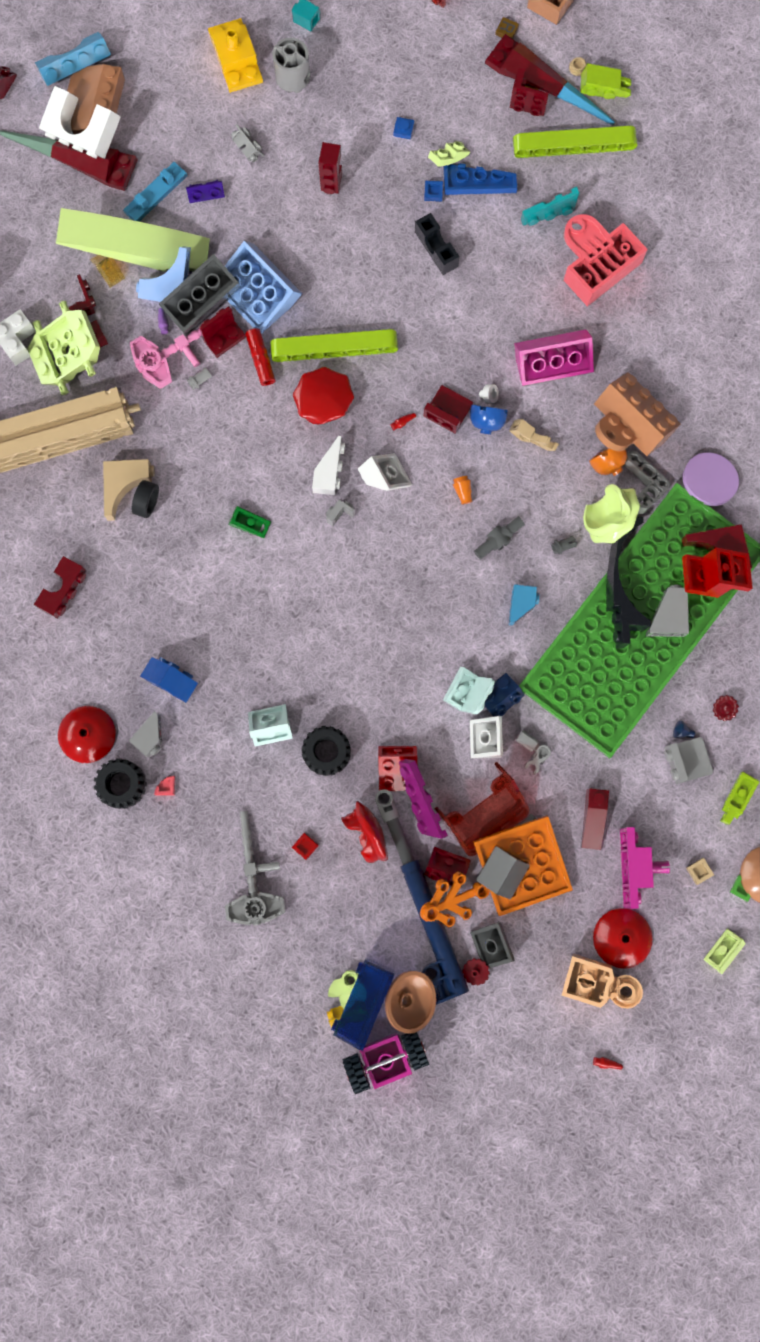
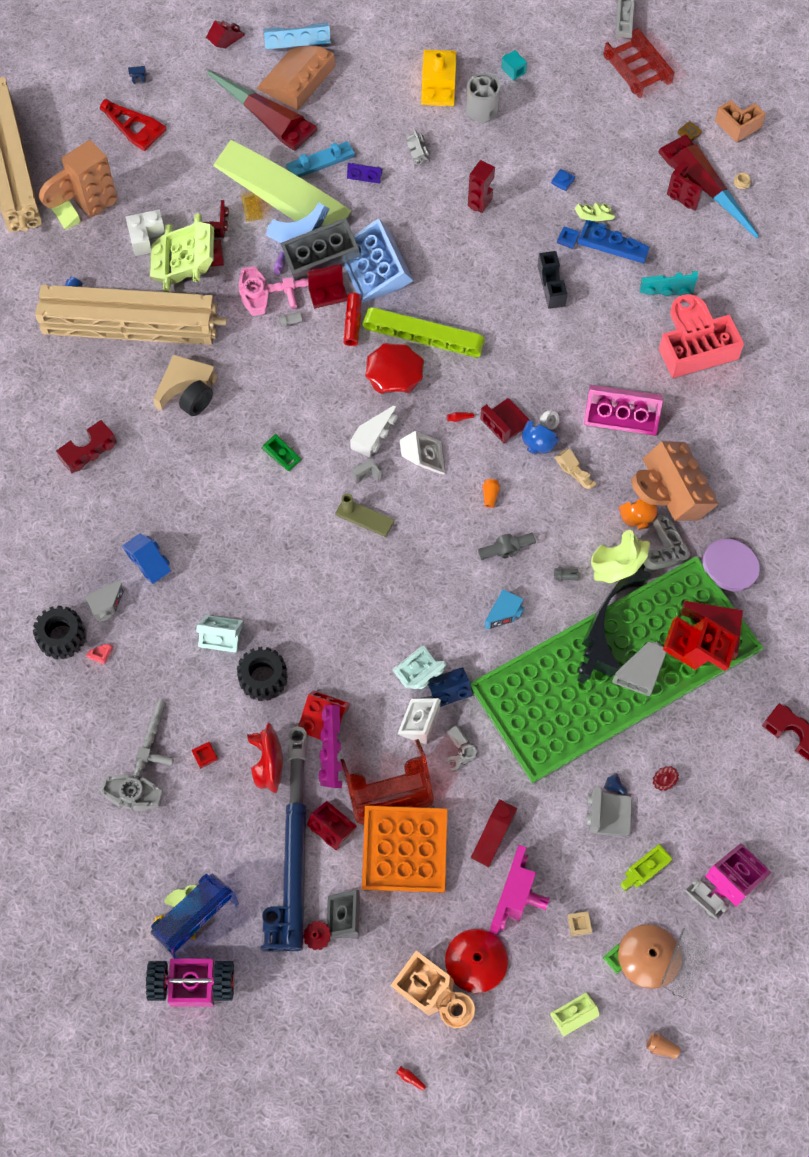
camera: 20 degrees right, 15 degrees down
(94, 139) = (285, 99): white arch -> none
(99, 737) = (53, 590): red dish -> none
(355, 558) = (363, 516): none -> olive piece
(417, 1005) = (249, 930): nougat dish -> none
(451, 900) = (320, 853): orange plant -> none
(502, 873) = (382, 846): slope -> none
(575, 141) = (715, 239): lime beam -> none
(604, 82) = (761, 200): lime hinge -> none

